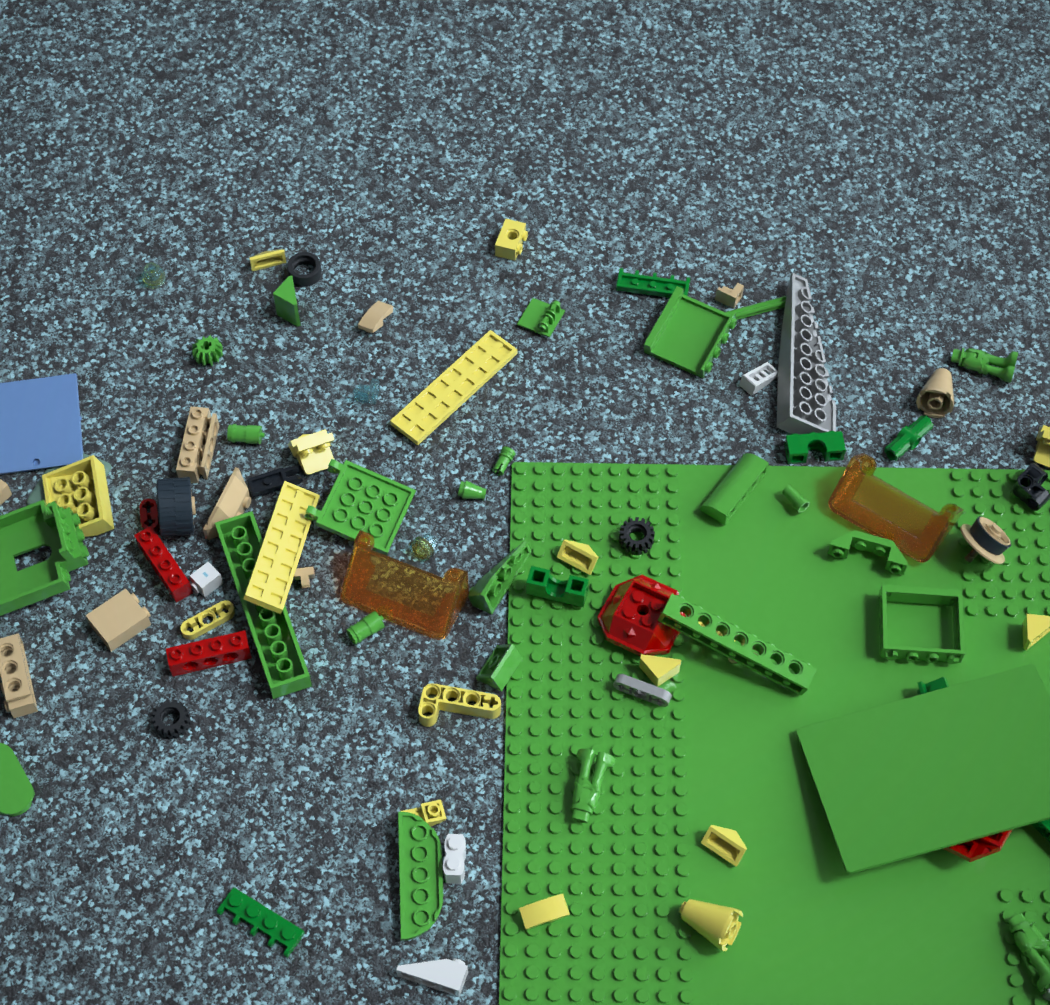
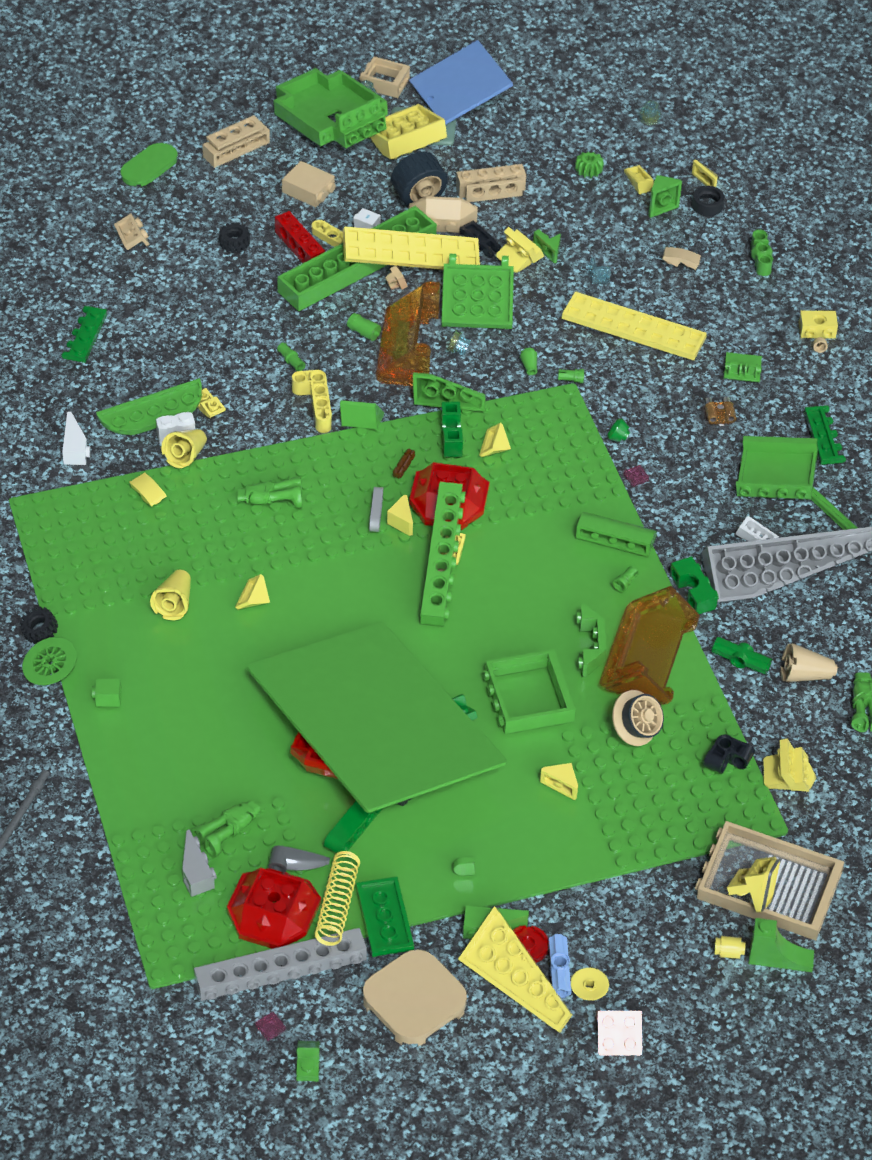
camera: 70 degrees right, 10 degrees down
(115, 828) = (131, 232): none -> tan bracket
(163, 564) = (368, 193): red brick -> none
(249, 434) = (517, 208): bright green piece -> none
(255, 315) = (641, 181): none -> light yellow slope
(316, 422) = (549, 246): none -> bright green slope
(382, 712) = (291, 356): none -> bright green pin
(396, 250) = (761, 252): none -> bright green piece
(494, 854) = (183, 446): none -> light yellow cone
(534, 247) = (822, 347): none -> tan hinge
(581, 646) = (403, 463): none -> reddish brown axle
(596, 354) = (720, 412): none -> clear orange piece
(596, 444) = (618, 431): none -> green cone
(636, 526) = (534, 467): black tyre -> none
(654, 450) = (636, 475): none -> clear pink tile
(728, 296) = (842, 495): tan panel -> none

